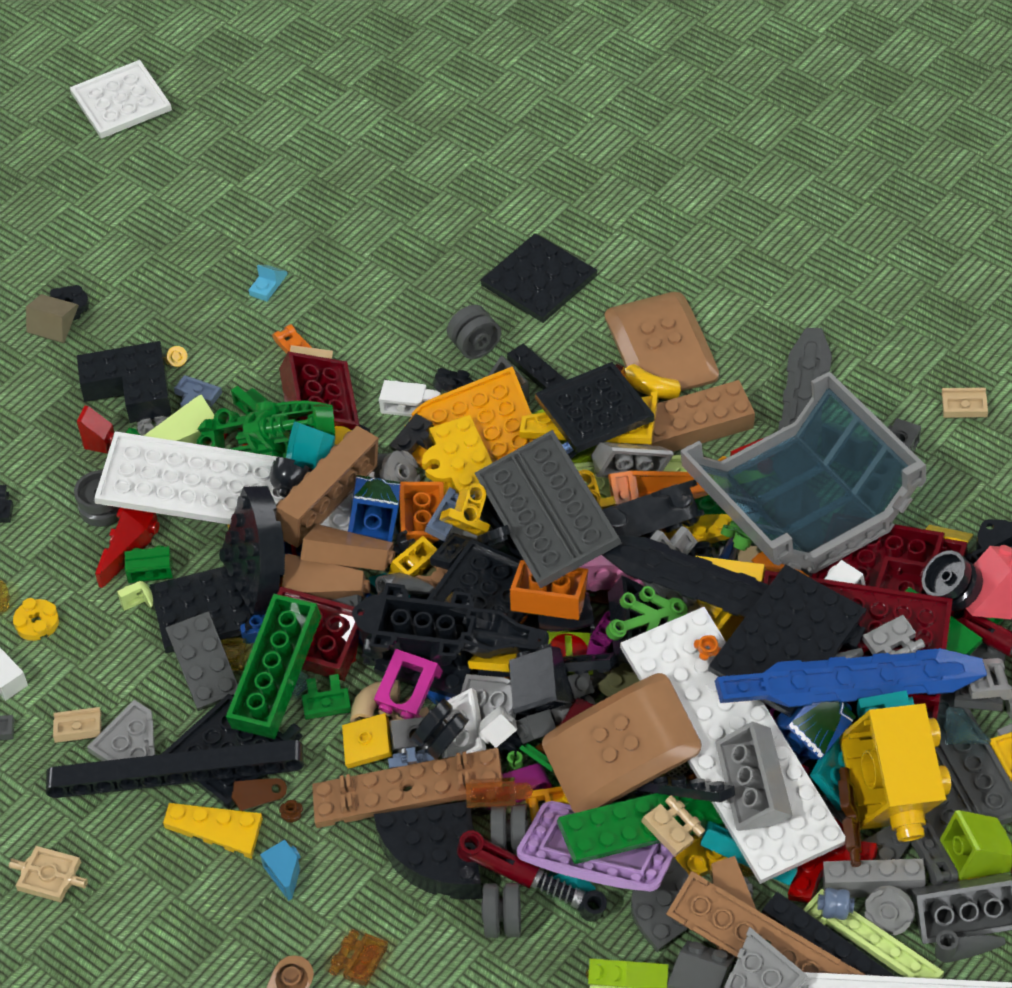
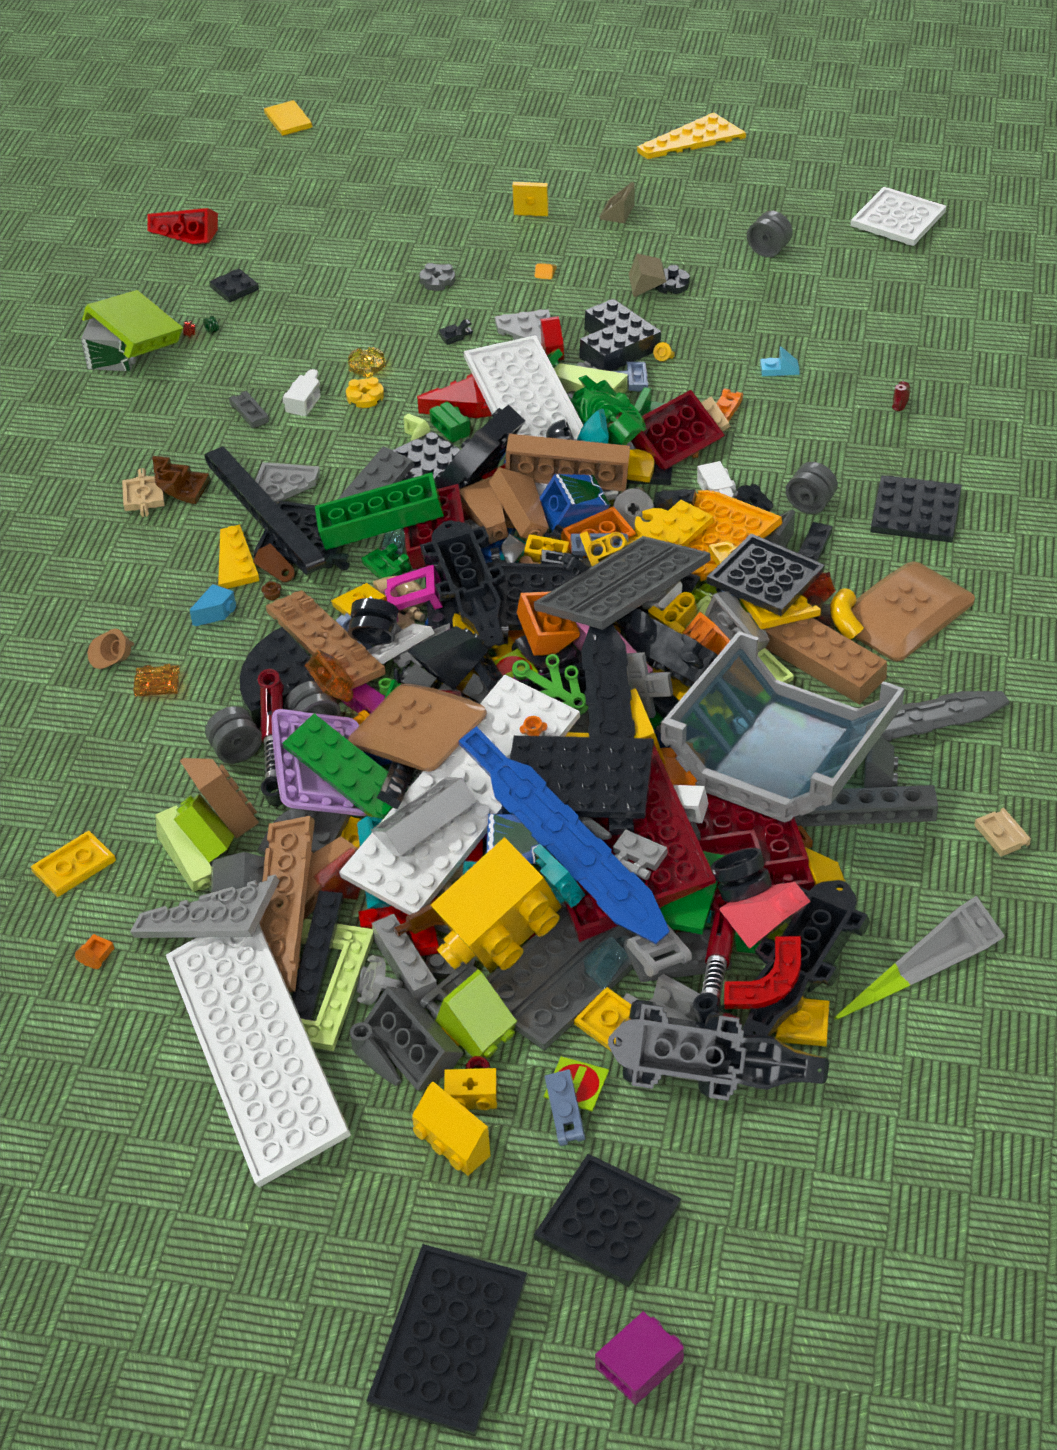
camera: 60 degrees right, 5 degrees down
(43, 442) = (521, 324): none -> light grey plate
(55, 833) = (179, 480): none -> reddish brown slope
(76, 198) = (769, 234): none -> dark grey wheel
(76, 724) = (281, 450): tan plate -> none
(386, 216) = (901, 396): none -> dark red piece
(497, 726) = (397, 655): white brick -> none
(600, 939) = (222, 794): none -> medium nougat slope
(668, 829) = (351, 790): tan plate -> none
(752, 891) = (330, 878): none -> clear red slope
(835, 903) = (353, 938): sand blue piece -> none

